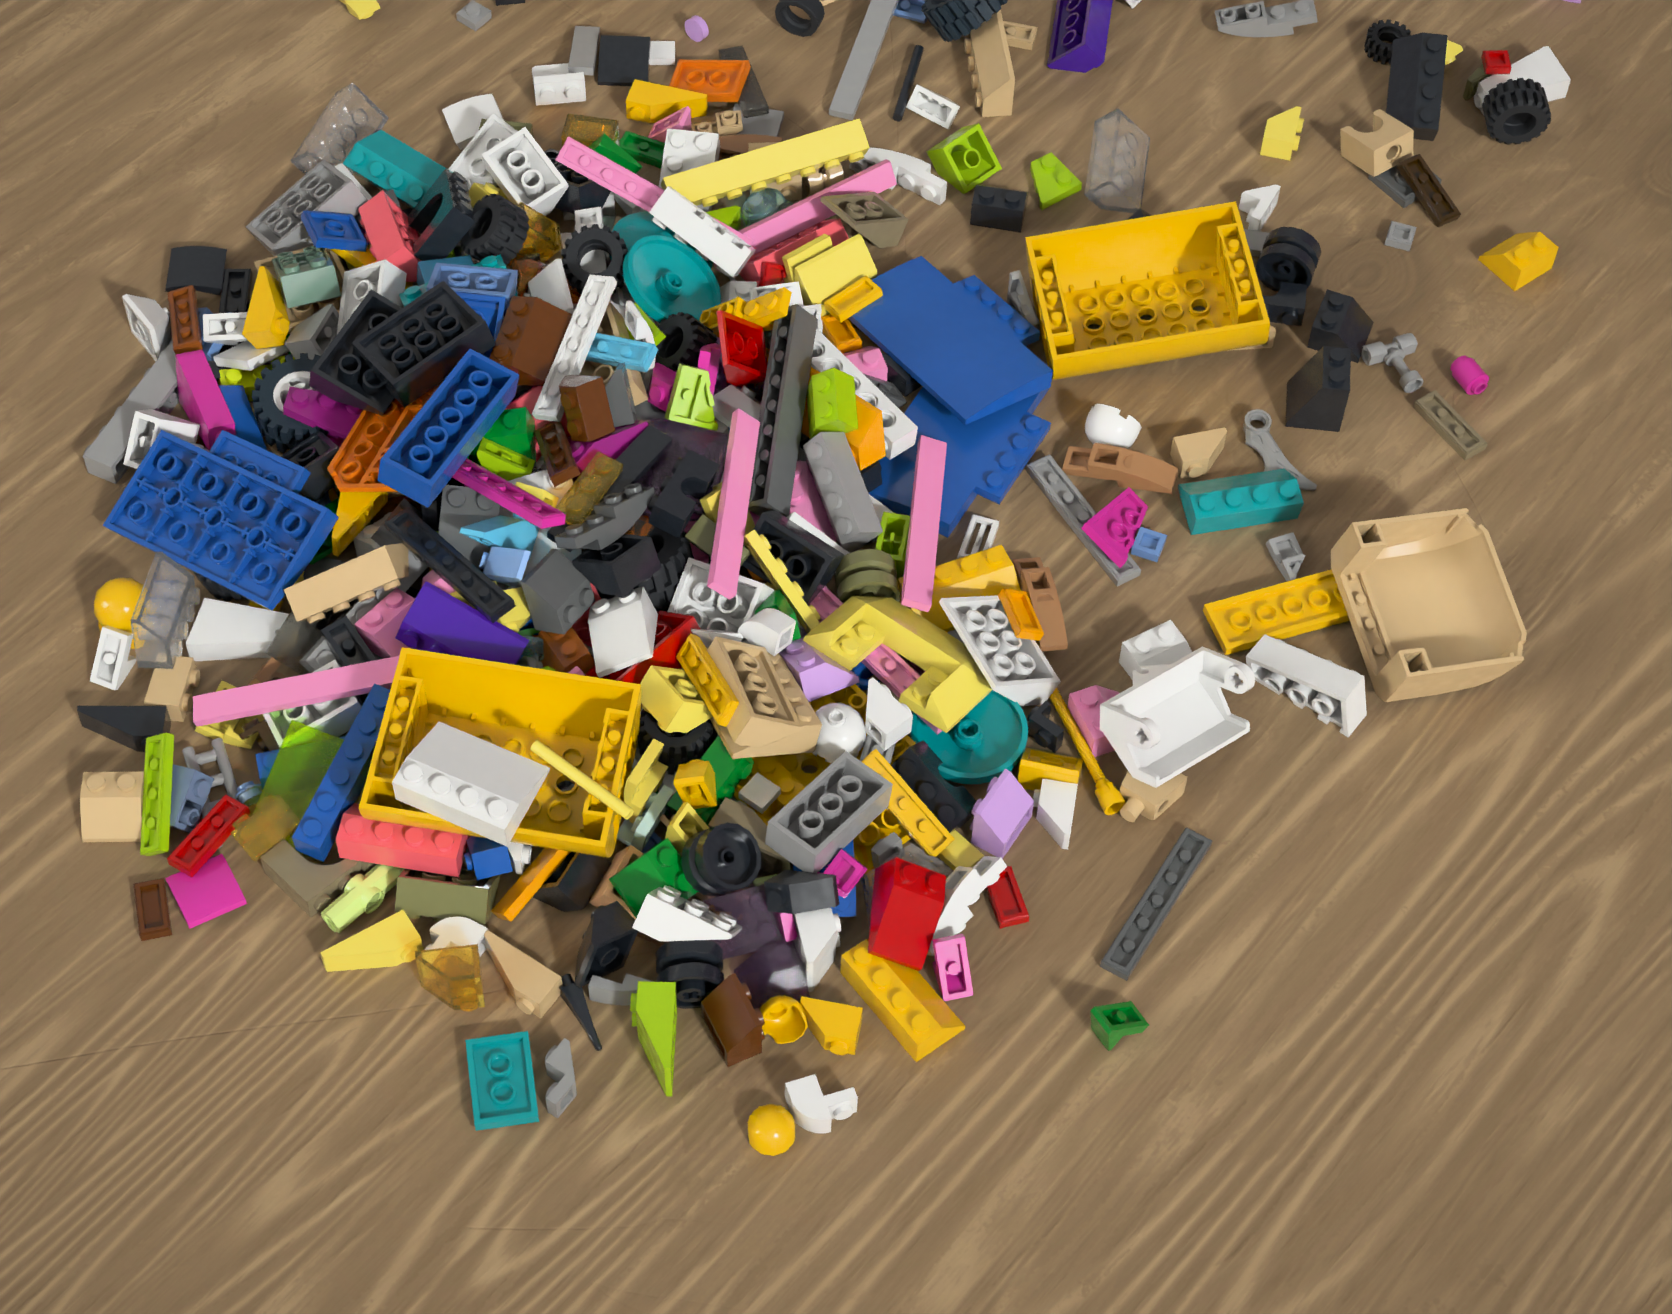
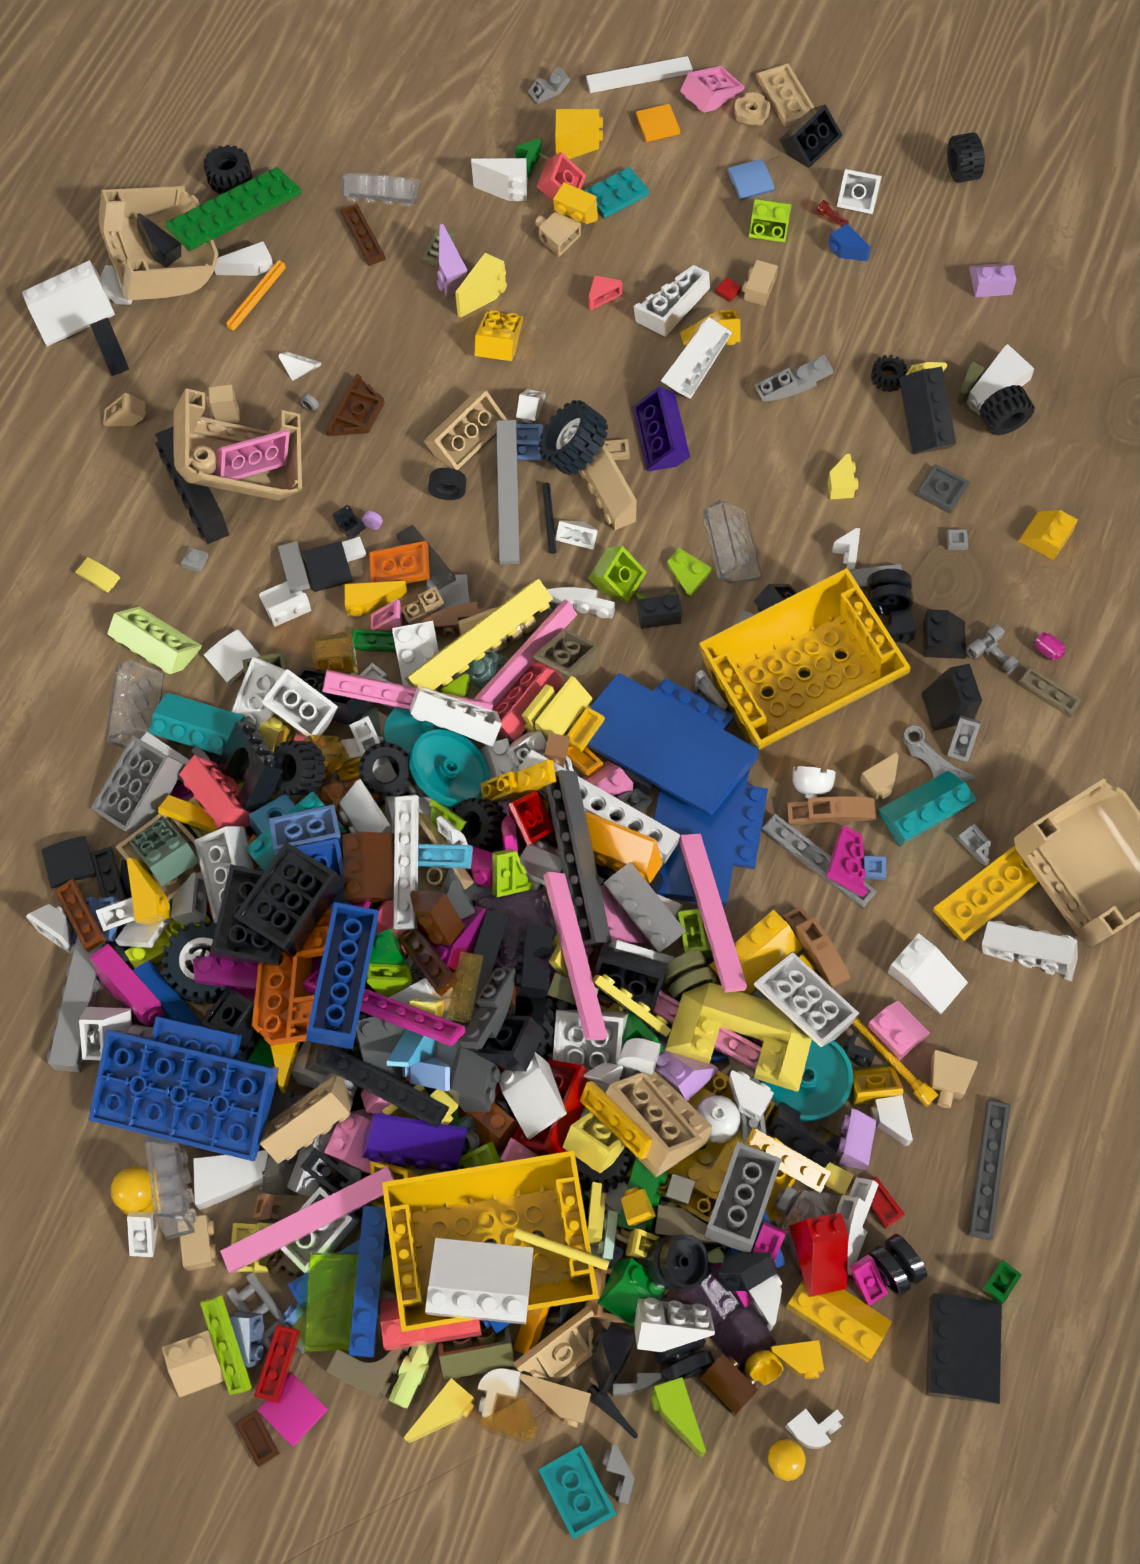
camera: 15 degrees left, 10 degrees up
(126, 723) = (184, 1287): black slope -> none
(266, 827) = (321, 1347): clear yellow brick -> none
(334, 231) = (169, 803): blue tile -> none
(390, 78) = (153, 639): none -> yellowish green slope
(547, 921) = (561, 1350): none -> tan wing
(611, 150) = (356, 664): green slope -> none
(667, 22) = (348, 522): none -> black bracket
(771, 274) = (515, 728): red tile -> none
(811, 299) = (557, 748): none -> medium nougat brick
(831, 402) = (613, 843): lime slope -> none
(984, 523) = (750, 922): white tile -> none
(995, 958) = (898, 1264): none -> black wheel
(1021, 614) = (811, 966): light orange tile -> none
(1041, 1080) = (964, 1349): none -> black slope
(1175, 714) = (955, 1017): white piece -> none
(1318, 439) = (964, 738): none -> light grey slope
(1378, 149) = (921, 472): tan piece -> none
(1428, 190) = (965, 495): dark brown tile -> none
(1496, 62) = (977, 371): red tile -> none

